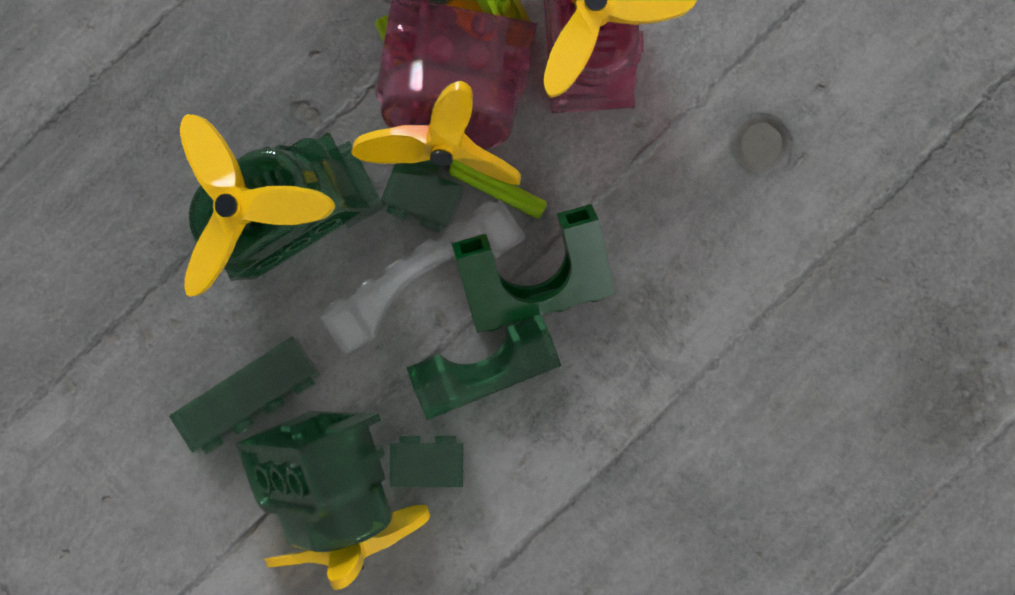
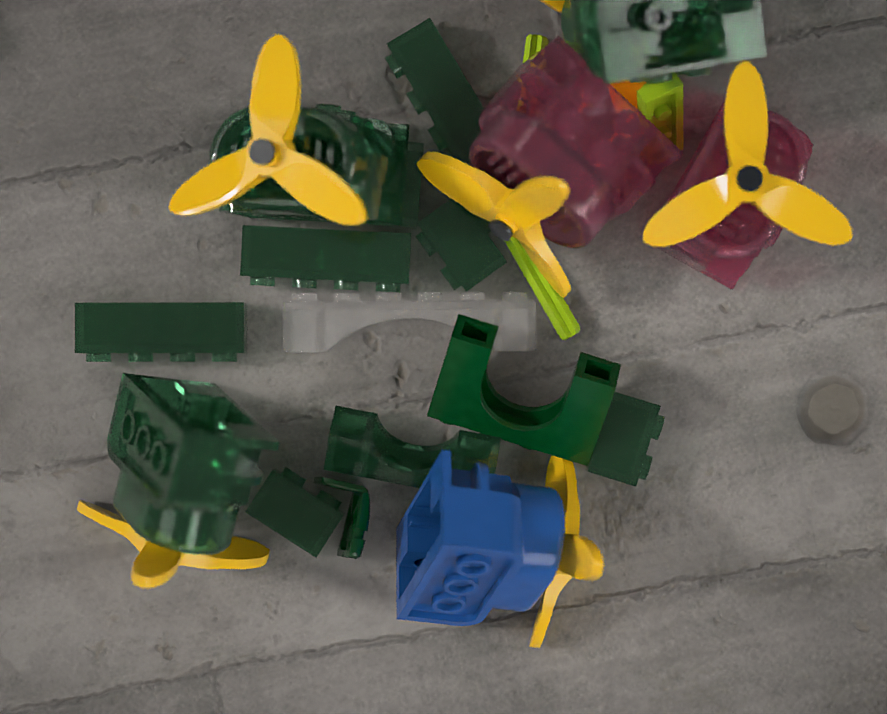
camera: 30 degrees right, 5 degrees up
(330, 267) = (325, 256): none -> clear green brick
(331, 95) = (437, 88): none -> clear green brick
(473, 436) = (357, 517): none -> dark green piece
(583, 393) = (490, 544): none -> blue brick
(630, 258) = (625, 440): none -> clear green brick

